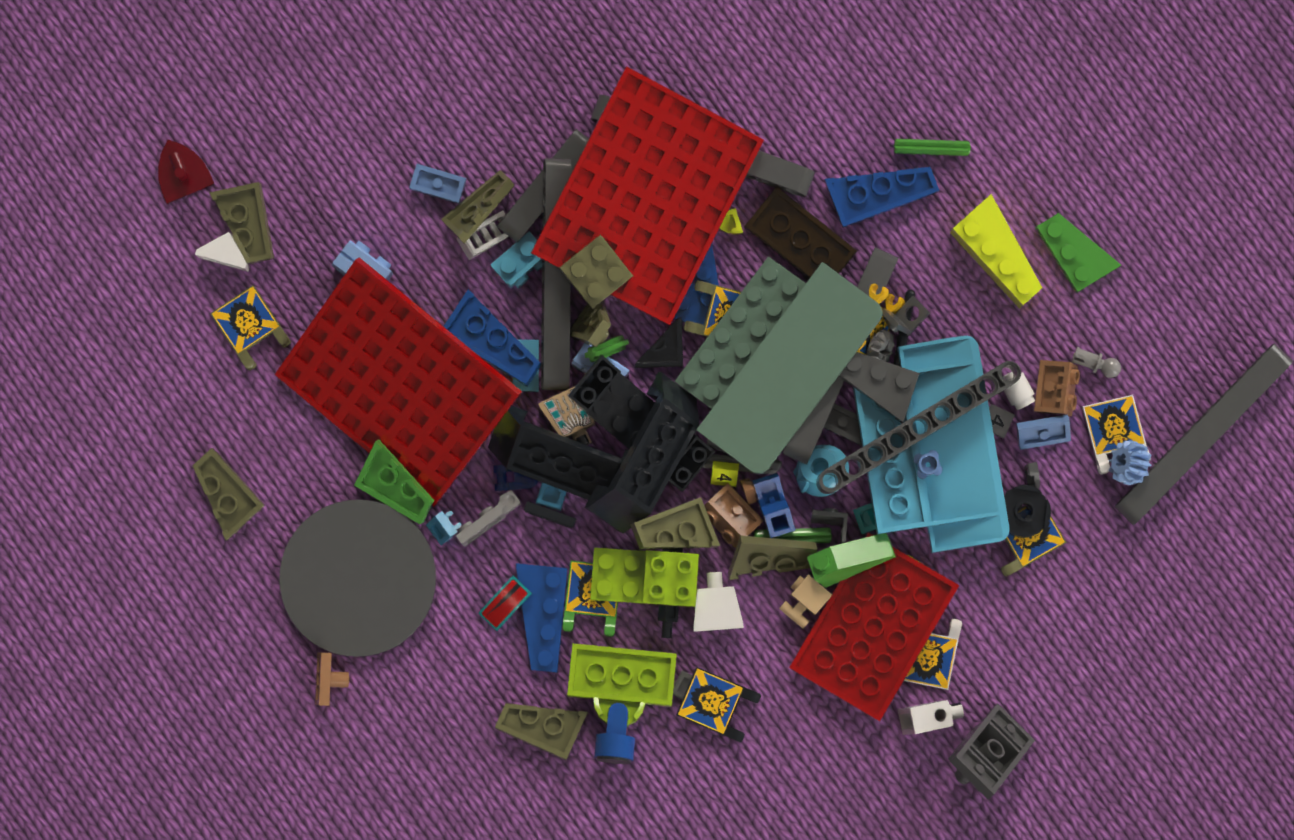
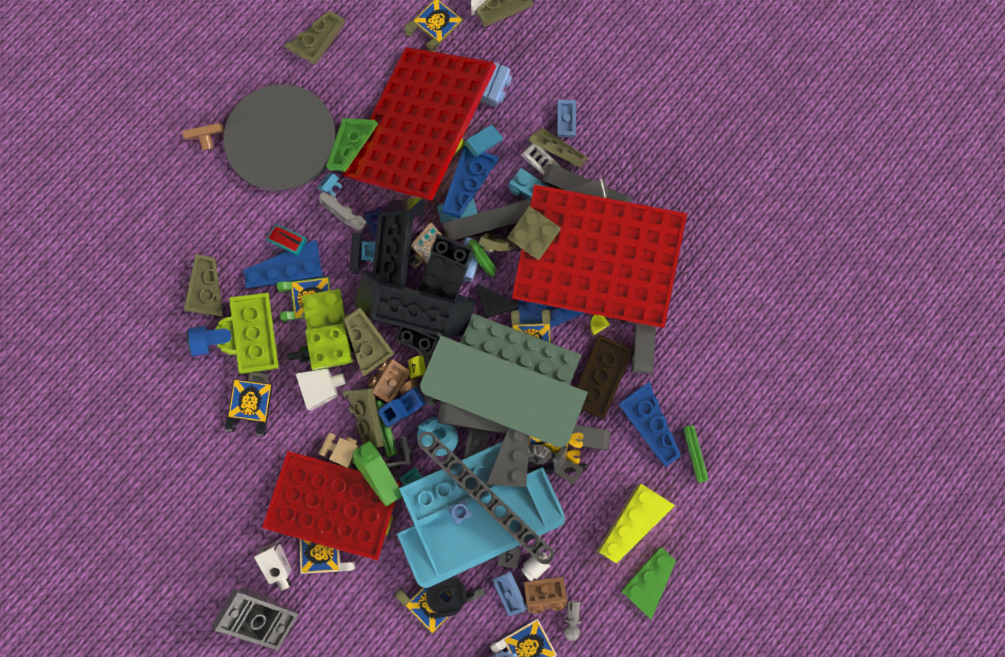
camera: 70 degrees right, 5 degrees down
(440, 302) = (483, 140): none -> dark azure tile

